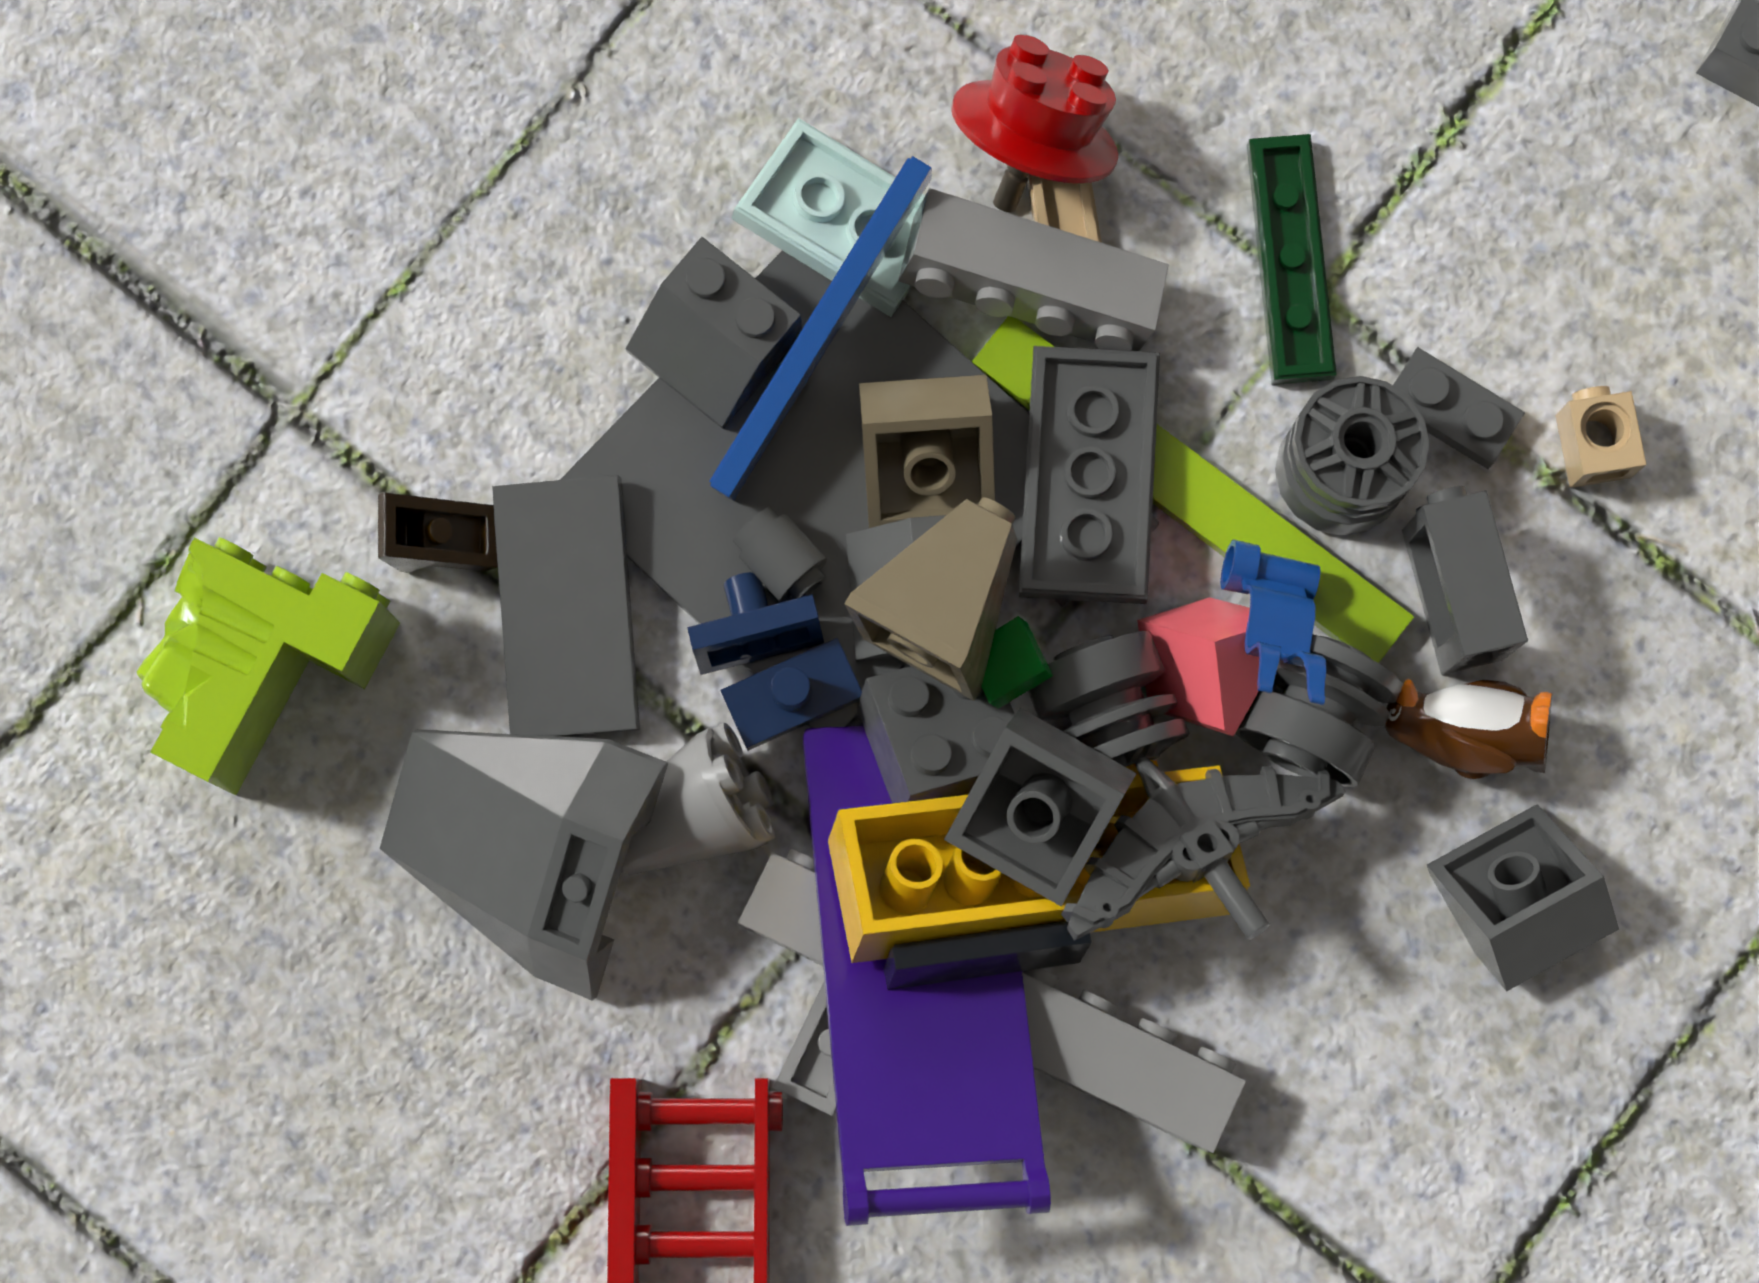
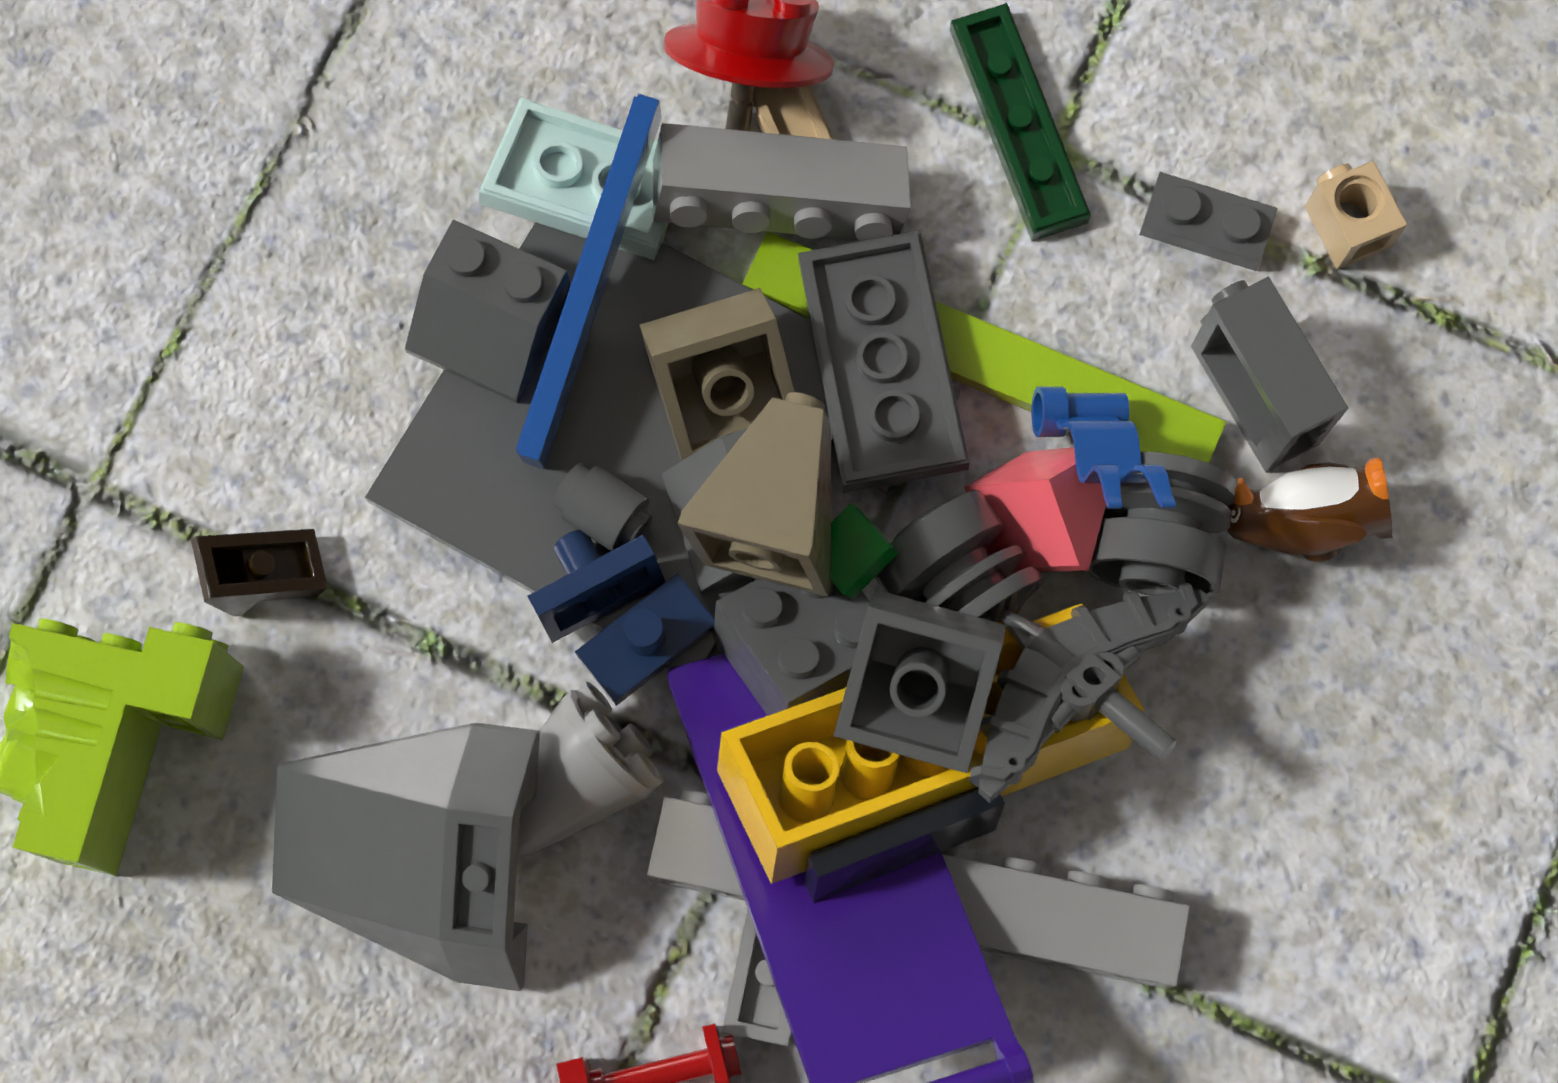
camera: 15 degrees left, 5 degrees down
(566, 607) = (404, 608): dark grey tile -> none
(1352, 455) = (1128, 281): dark grey wheel -> none
(1524, 896) = (1407, 661): dark grey slope -> none

